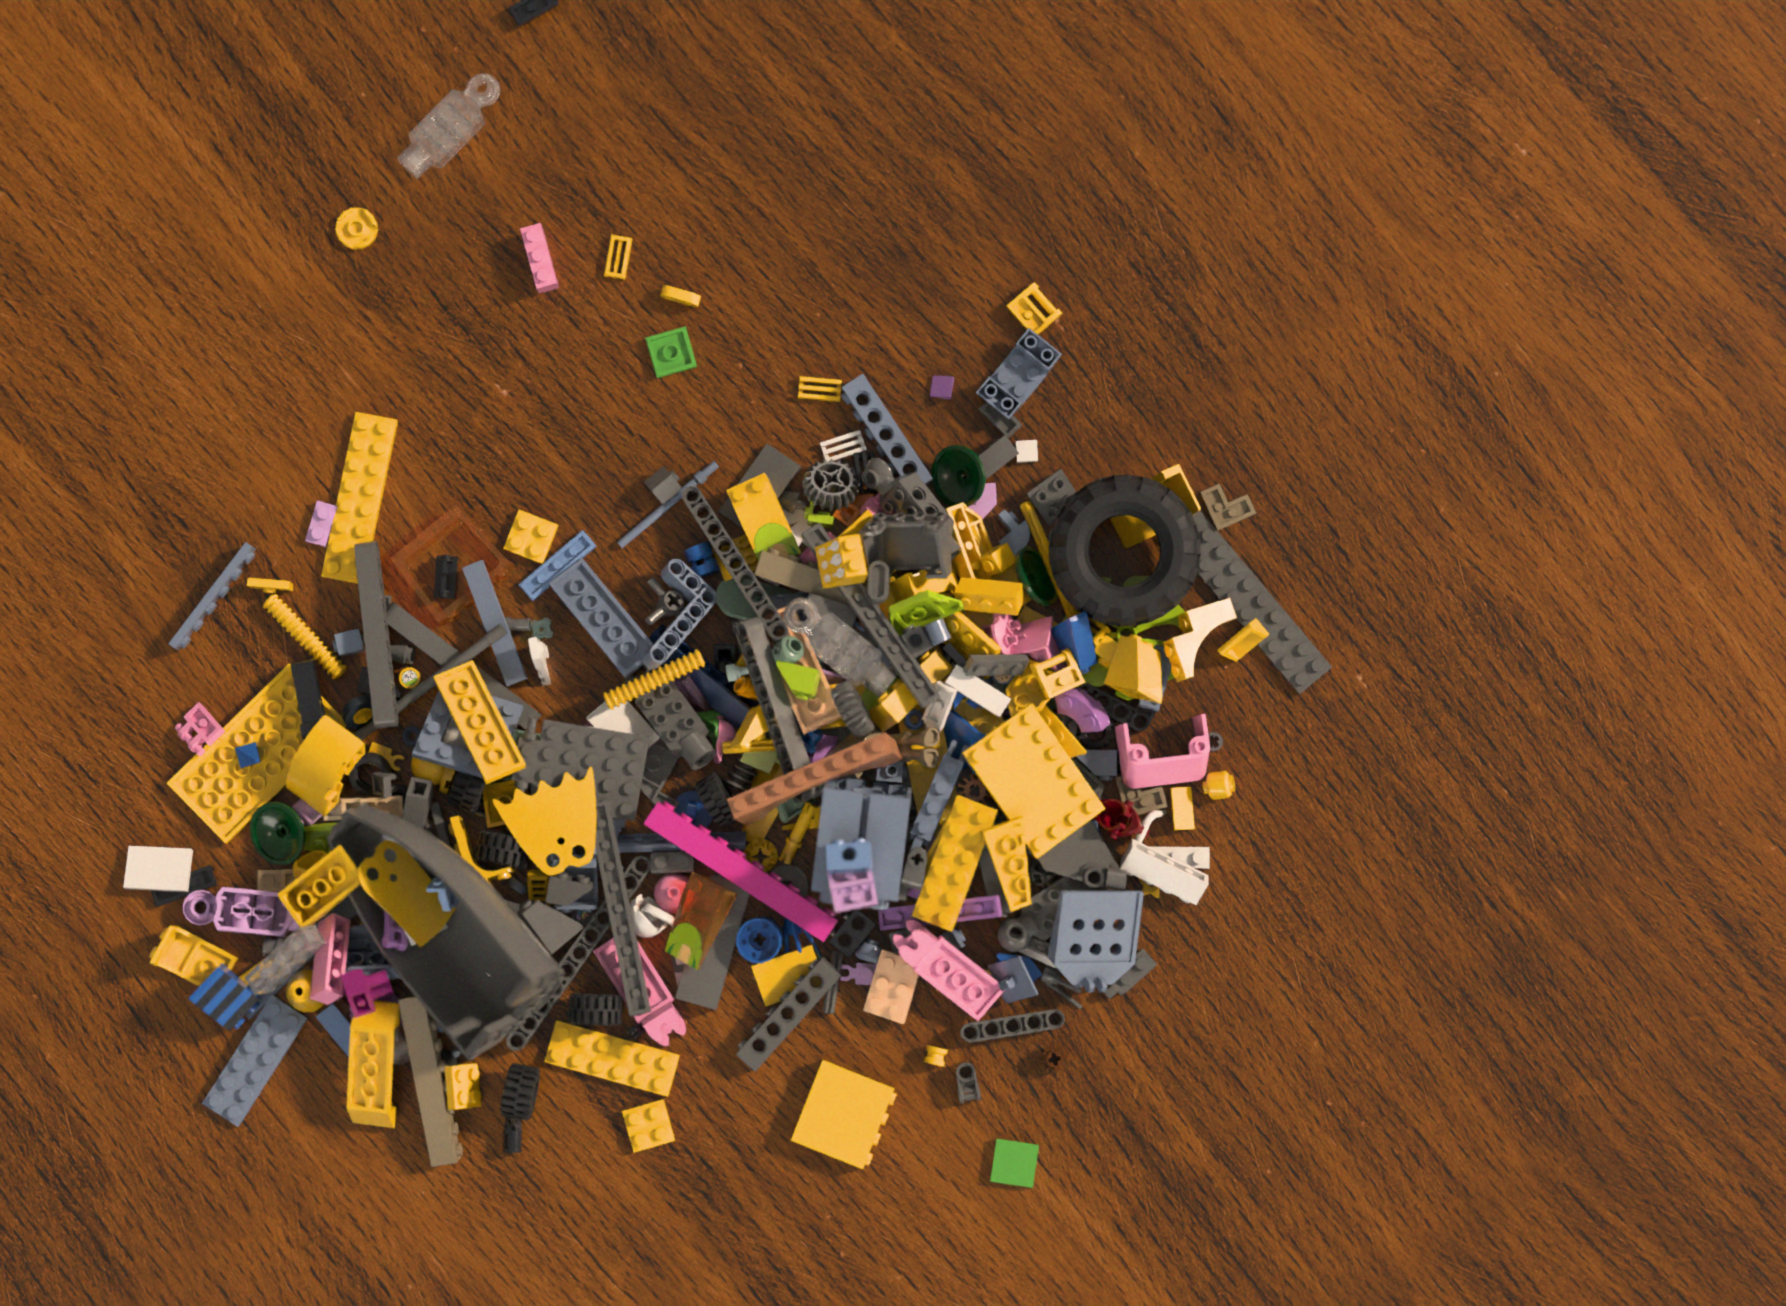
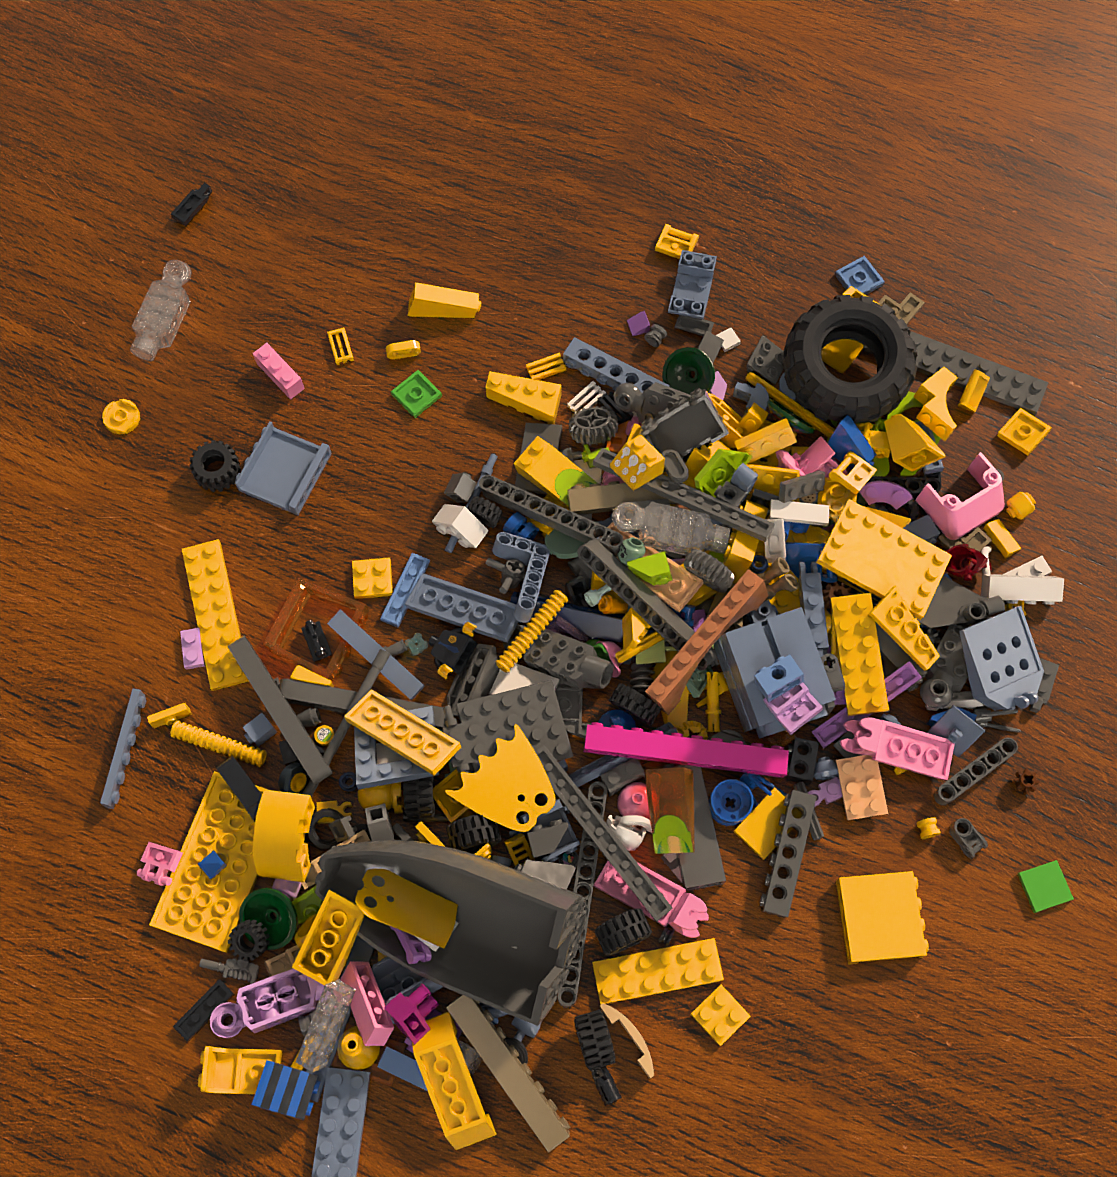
camera: 25 degrees left, 15 degrees down
(158, 868) = (173, 1005): white tile -> none
(231, 863) = (234, 968): none -> dark grey piece
(260, 839) = (239, 945): none -> black tyre
(418, 322) = (210, 453): none -> black tyre
(418, 611) = (305, 675): none -> yellow slope
(445, 896) = (443, 891): light blue bracket -> none
(462, 1086) = (540, 1062): yellow plate -> none
(495, 372) = (282, 469): none -> sand blue panel
(539, 653) = (425, 660): white wing -> none
(558, 1132) = (613, 1016): none -> tan slope
(570, 656) = (453, 649): none -> black torso
(577, 695) = (475, 678): none -> dark grey wedge
(641, 526) = (460, 523): none -> white brick
(673, 524) = (485, 511): none -> black tyre
(747, 262) = (442, 302): none -> yellow slope
(783, 416) = (526, 395): none -> yellow wedge
(953, 409) = (655, 335): none -> dark grey wheel
(1206, 448) = (860, 275): none -> medium blue tile
(1273, 708) = (1024, 431): none -> yellow plate

